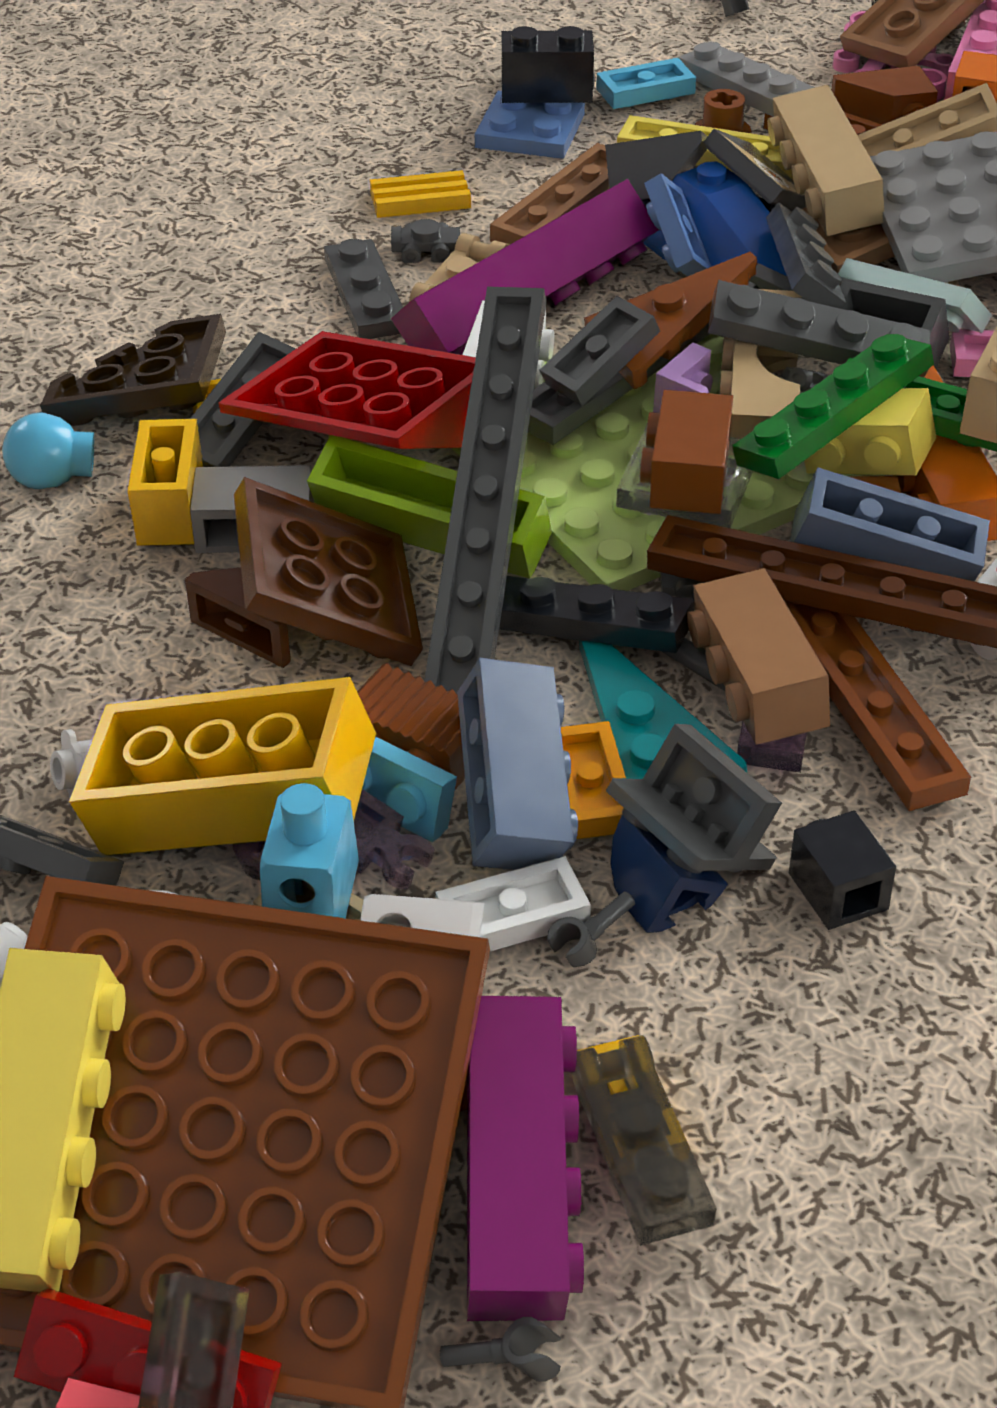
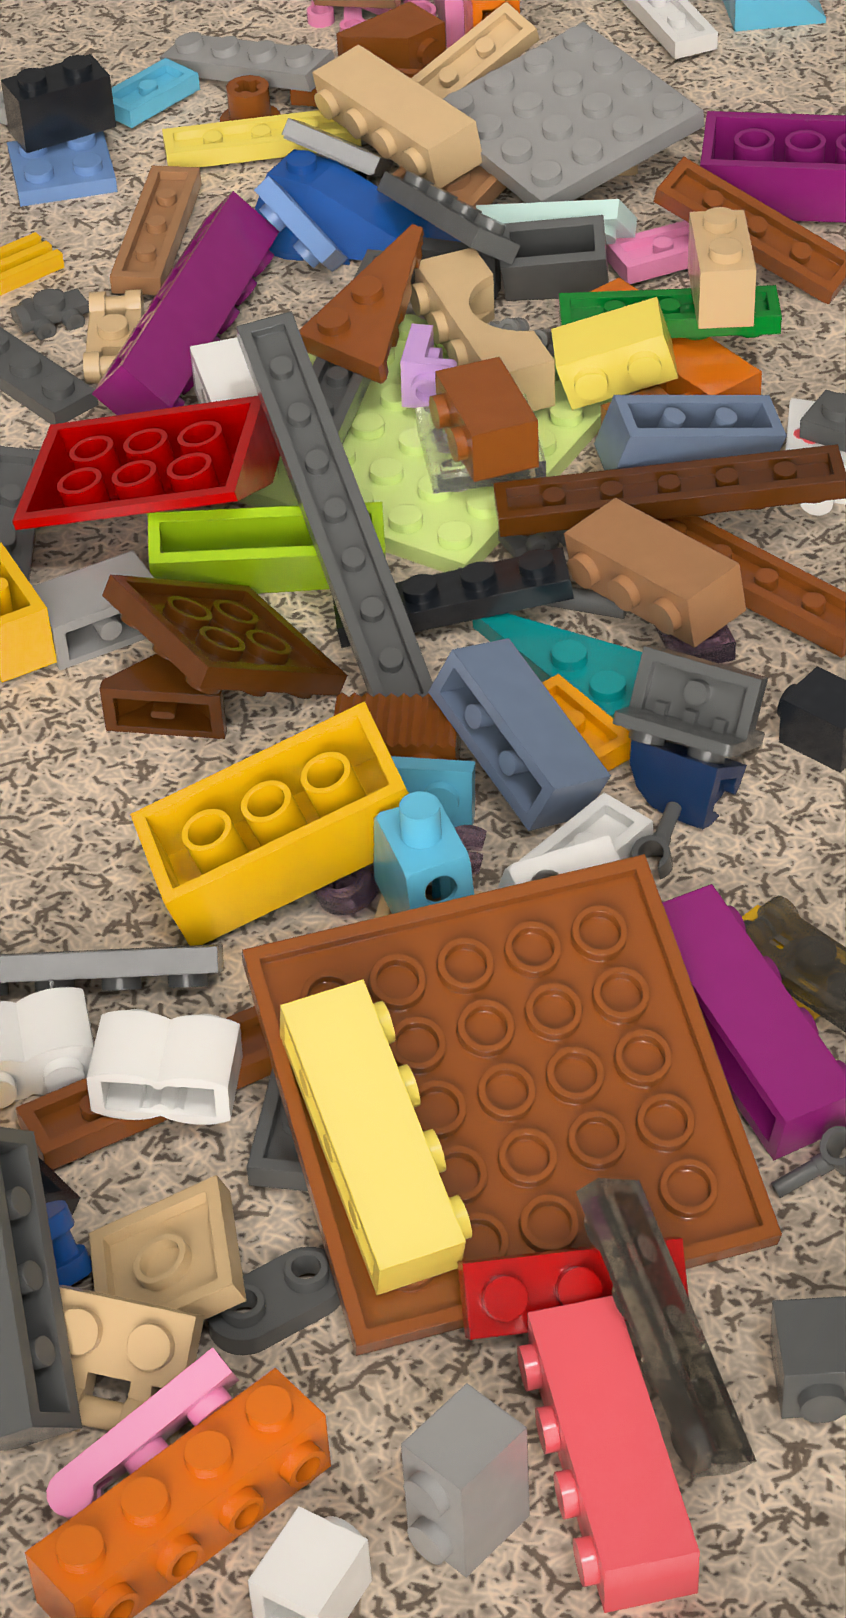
camera: 25 degrees left, 0 degrees up
(68, 761) = (120, 884): white plate -> none
(599, 350) = (347, 351): dark grey plate -> none
(649, 157) = (233, 168): dark grey slope -> none
(799, 324) = (512, 277): dark grey plate -> none
(832, 405) = (584, 337): green plate -> none

